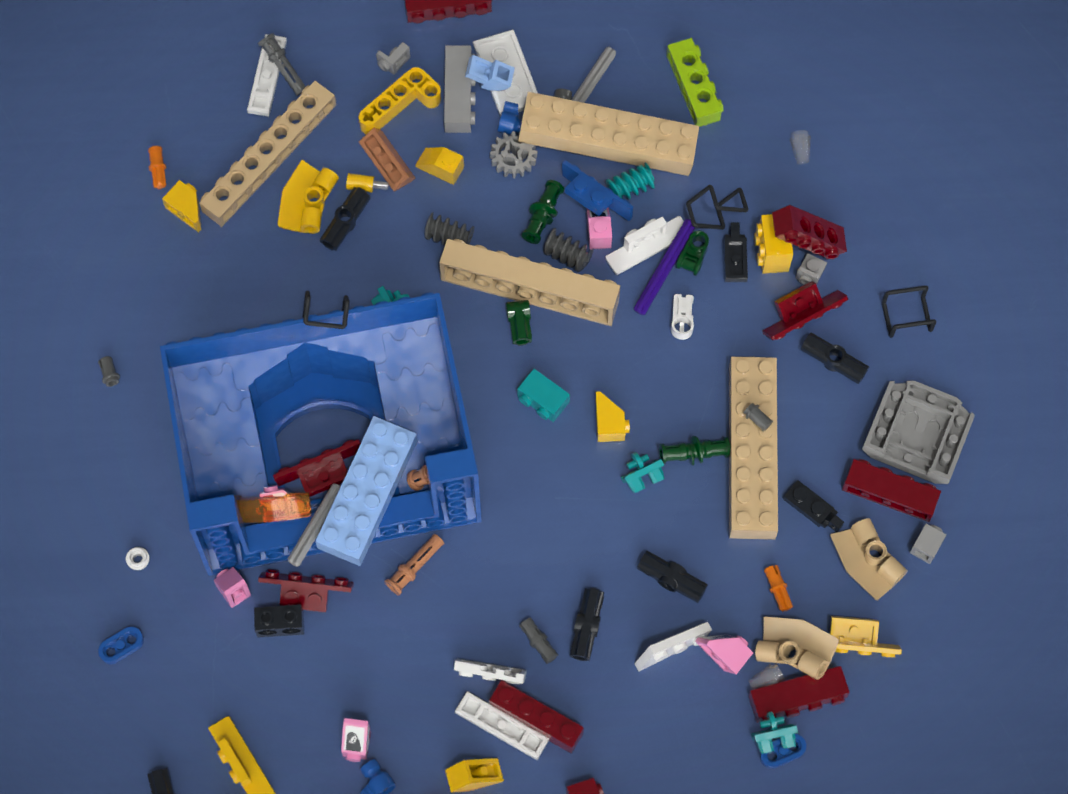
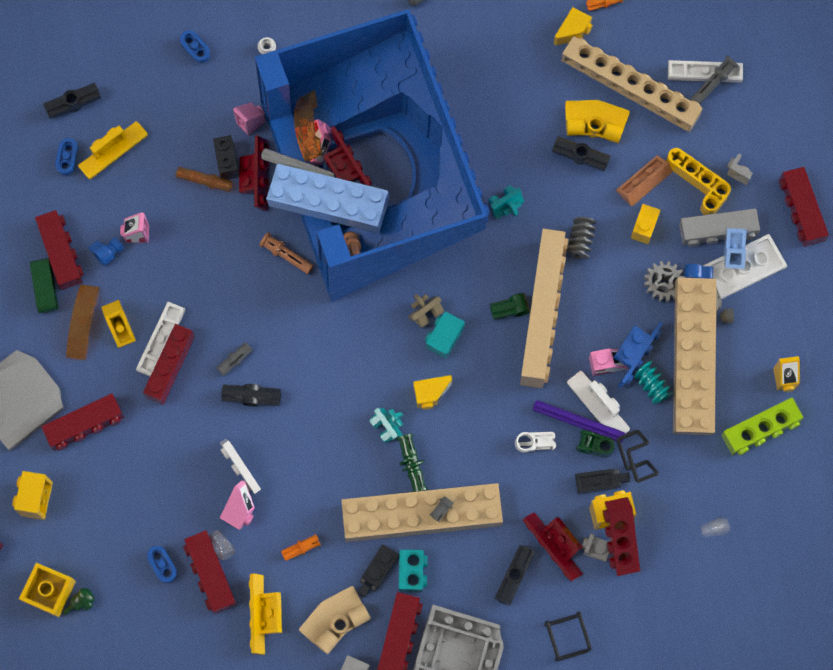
camera: 85 degrees right, 5 degrees up
(301, 652) = (204, 179): none -> clear orange pin
(345, 308) = (474, 117): black piece -> none
(364, 182) = (617, 164): yellow piece -> none
(490, 671) = (201, 325): white wing -> none
(506, 415) = (419, 314): none -> dark tan hips
(543, 212) = (613, 312): dark green piece -> none
(566, 251) = (579, 337): dark grey piece -> none
(594, 75) = (749, 338): light grey axle -> none
(640, 47) = (787, 373): none -> slope
(672, 576) = (300, 458): black piece -> none
(764, 737) = (173, 550): teal hips -> none
(812, 645) = (255, 557): tan panel -> none
(819, 474) = (407, 570): none -> teal brick

